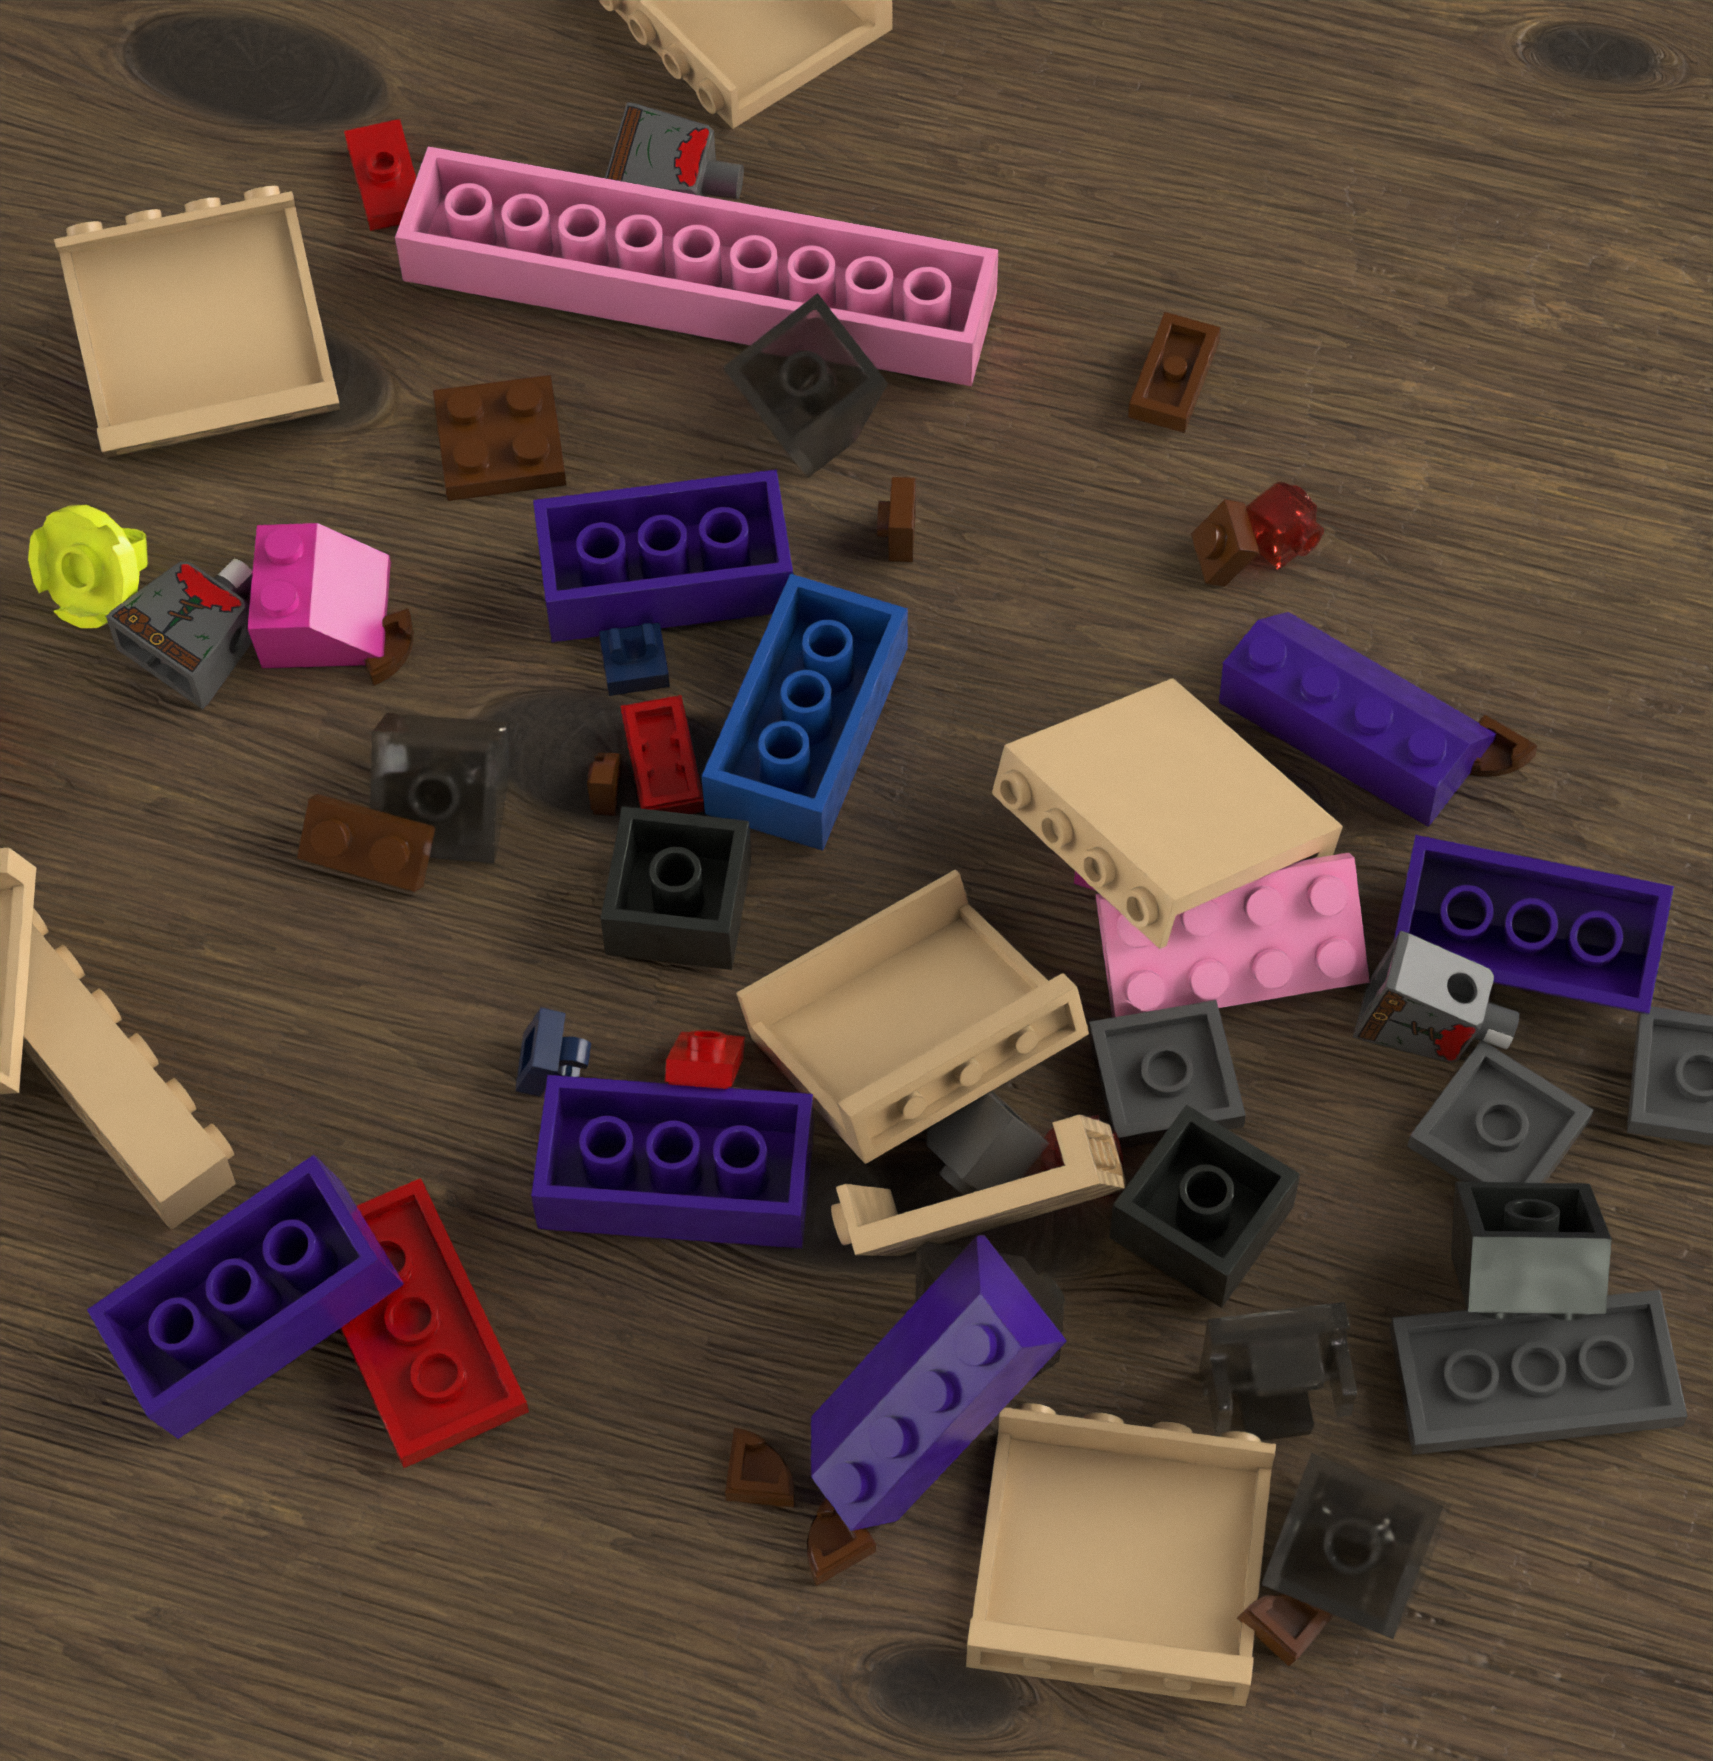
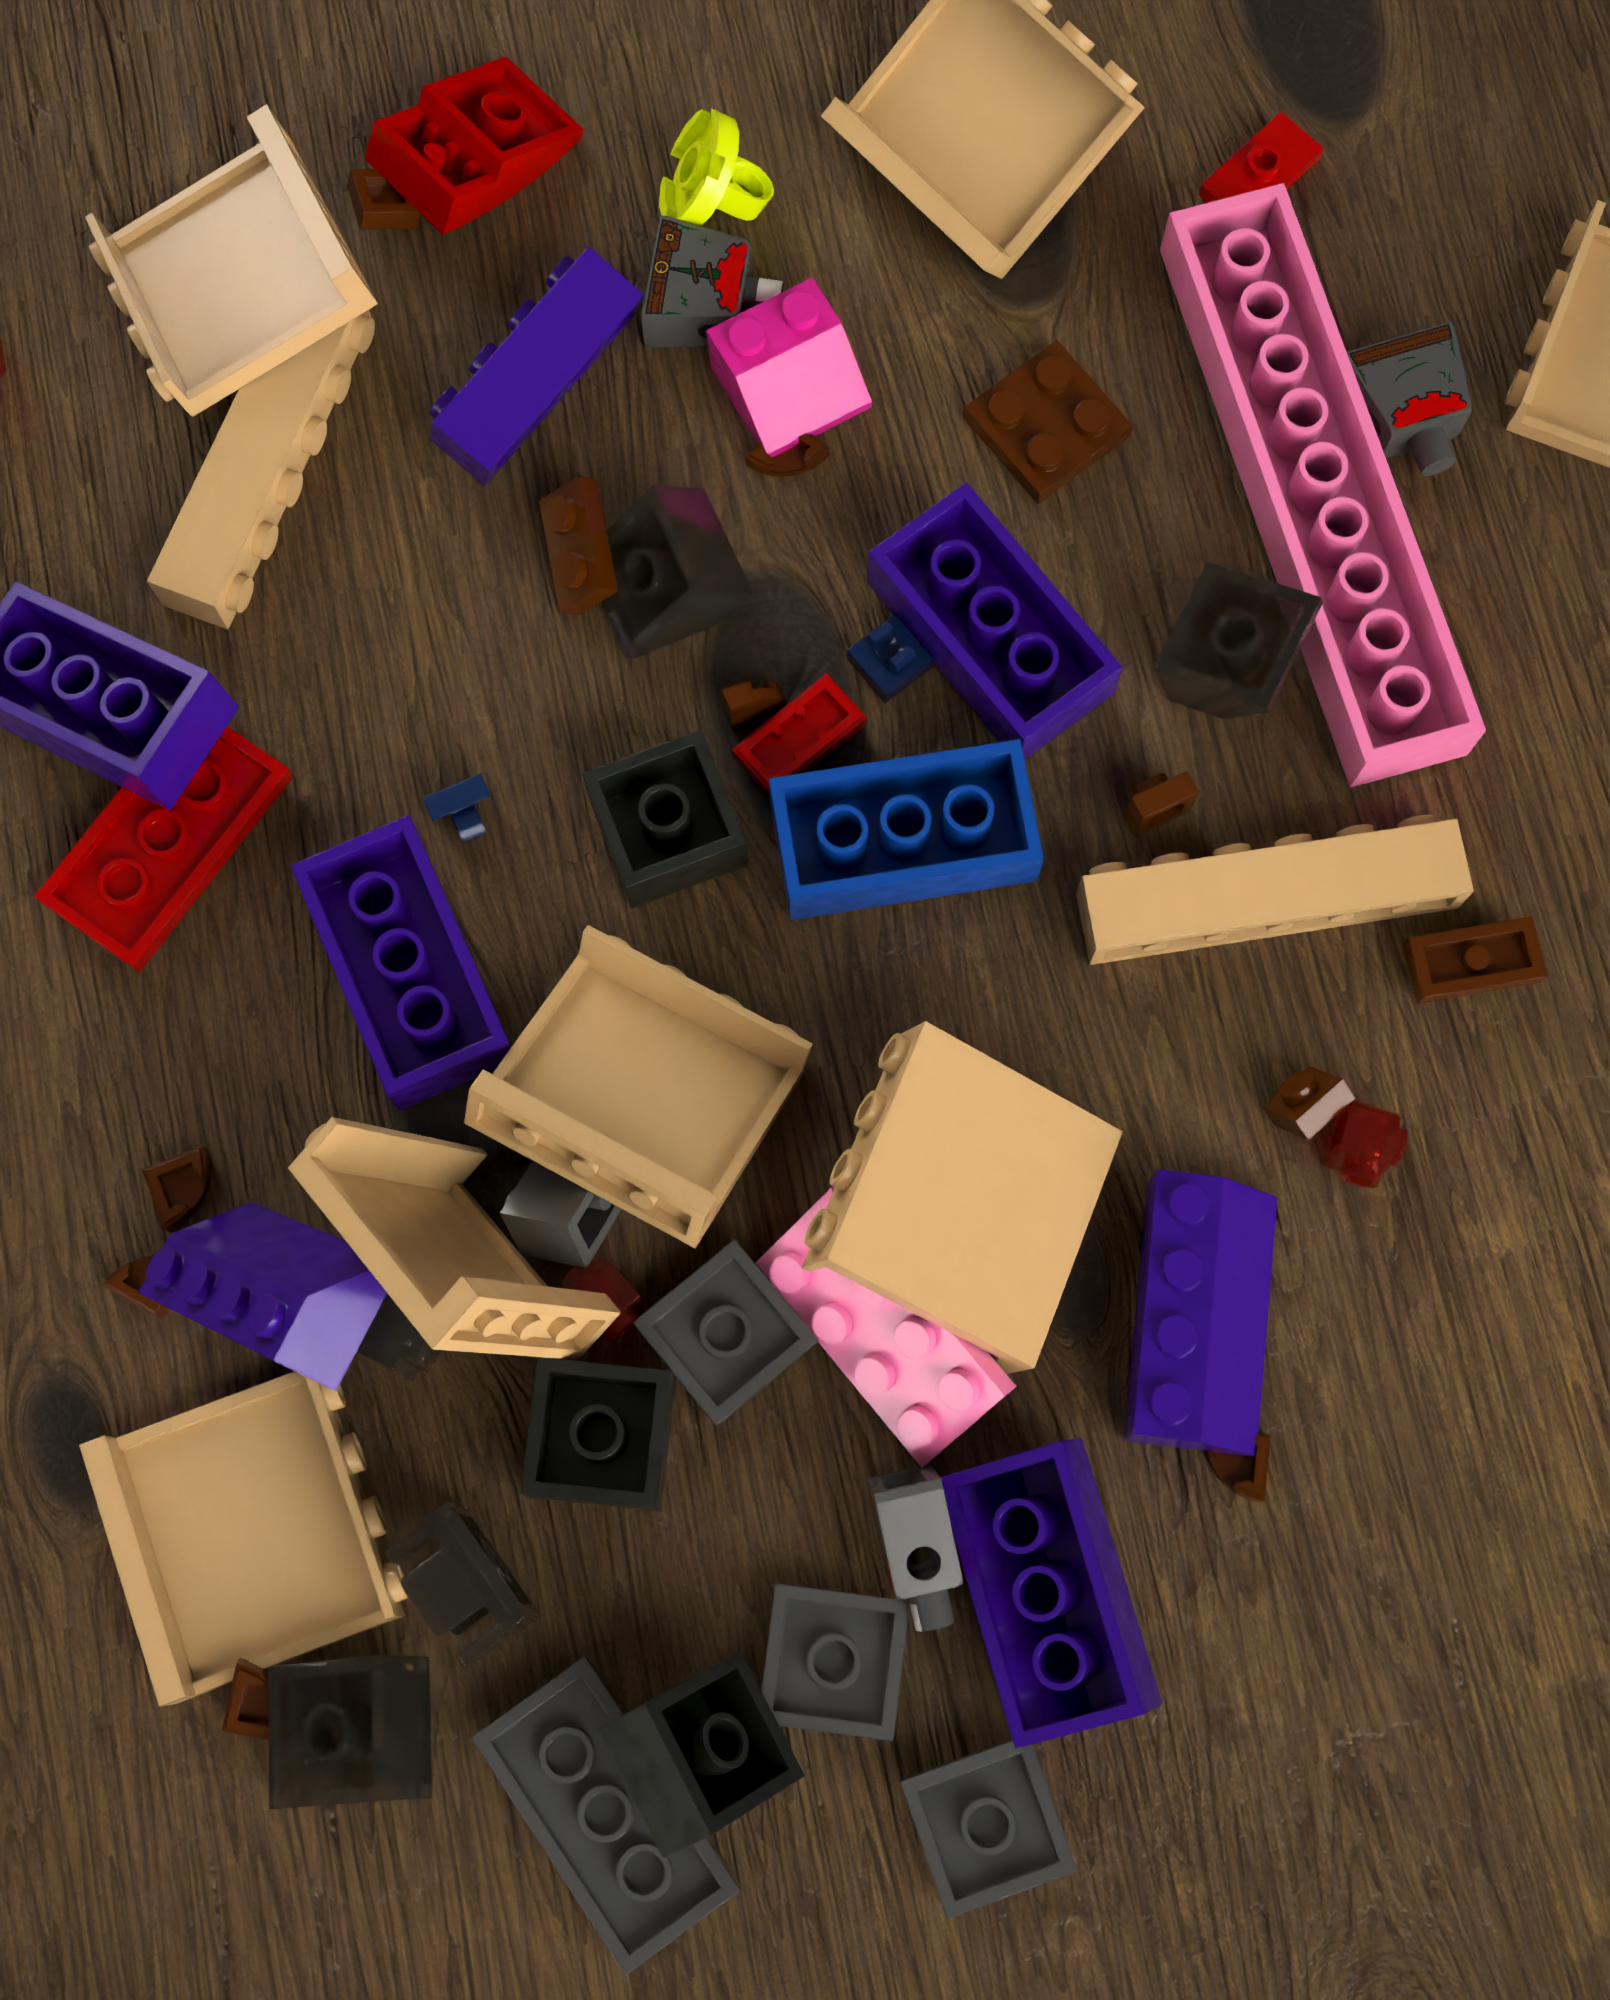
camera: 60 degrees right, 15 degrees up
(172, 791) = (534, 365): none -> dark purple brick
(705, 1059) = (510, 934): red plate -> none
(1026, 482) = (1273, 889): none -> tan brick

